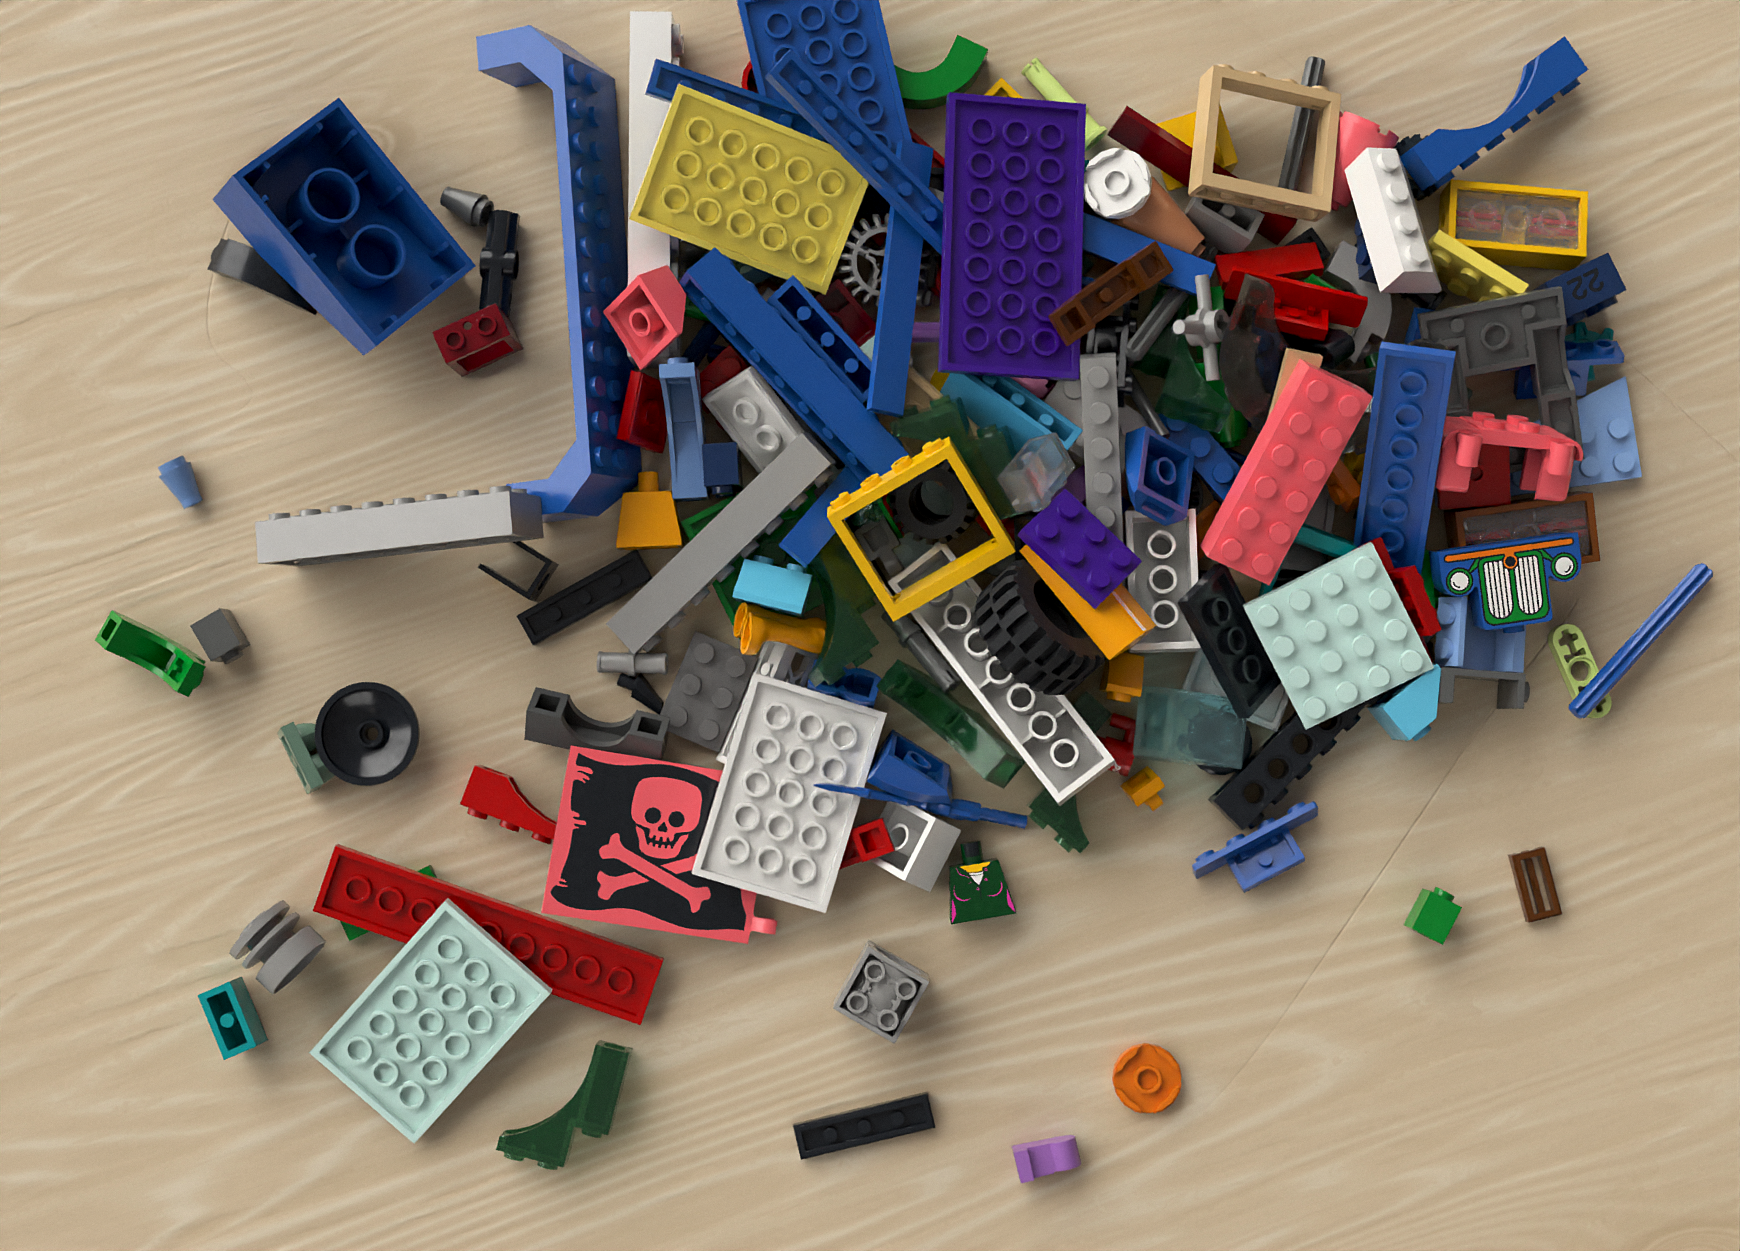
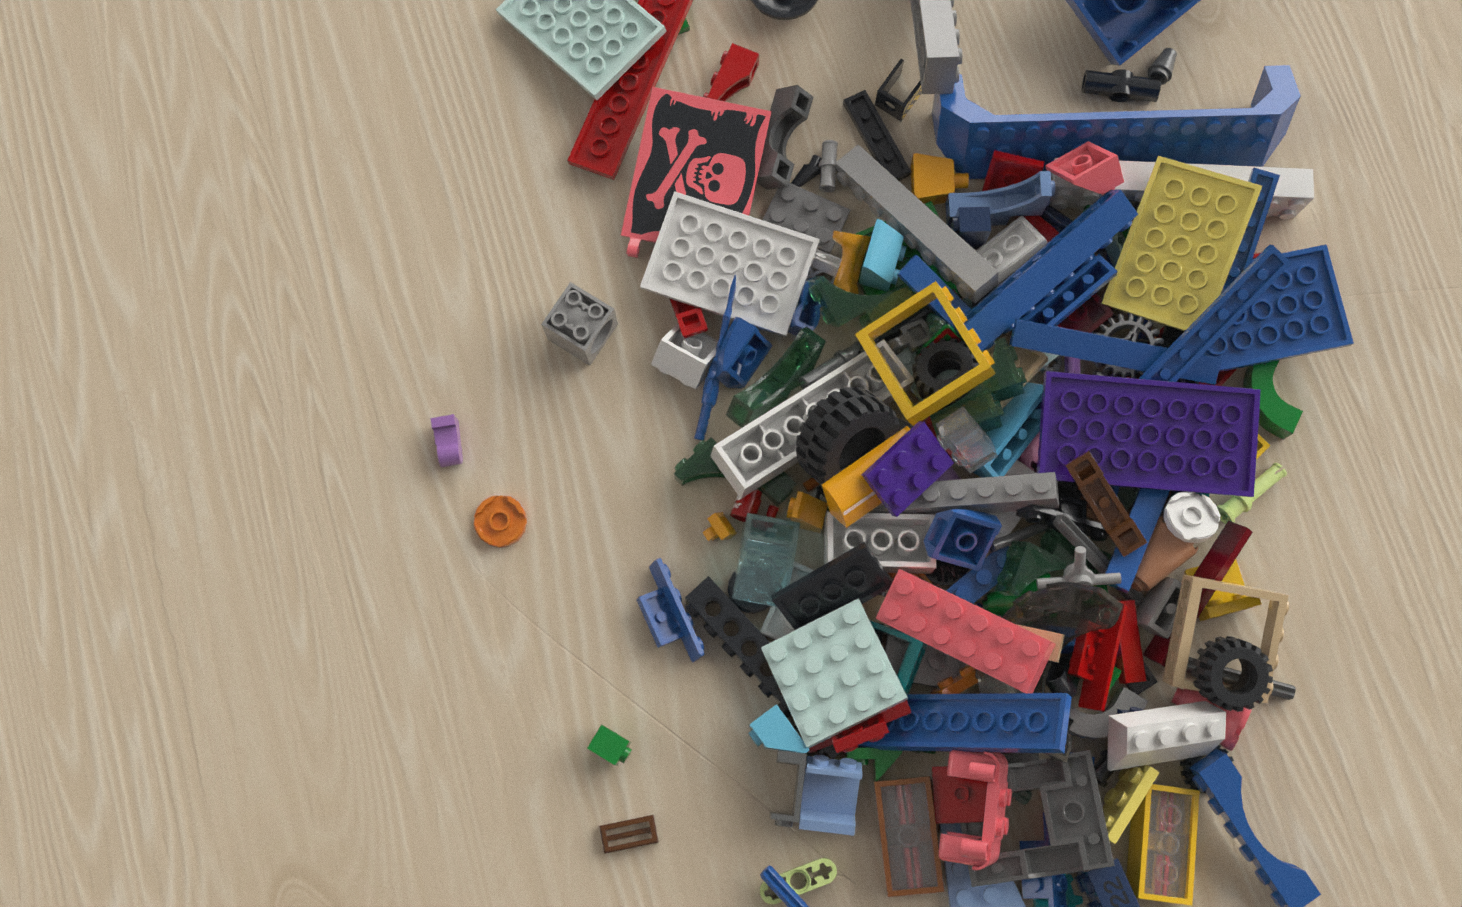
camera: 90 degrees right, 10 degrees down
(486, 341) = (1063, 65): dark red window -> none
(590, 1109) = (509, 124): clear green arch -> none
(864, 1125) = (482, 314): black tile -> none
(977, 887) = (652, 400): dark green torso -> none
(1334, 121) = (1253, 675): none -> black tyre
(1507, 577) = (876, 814): brick -> none

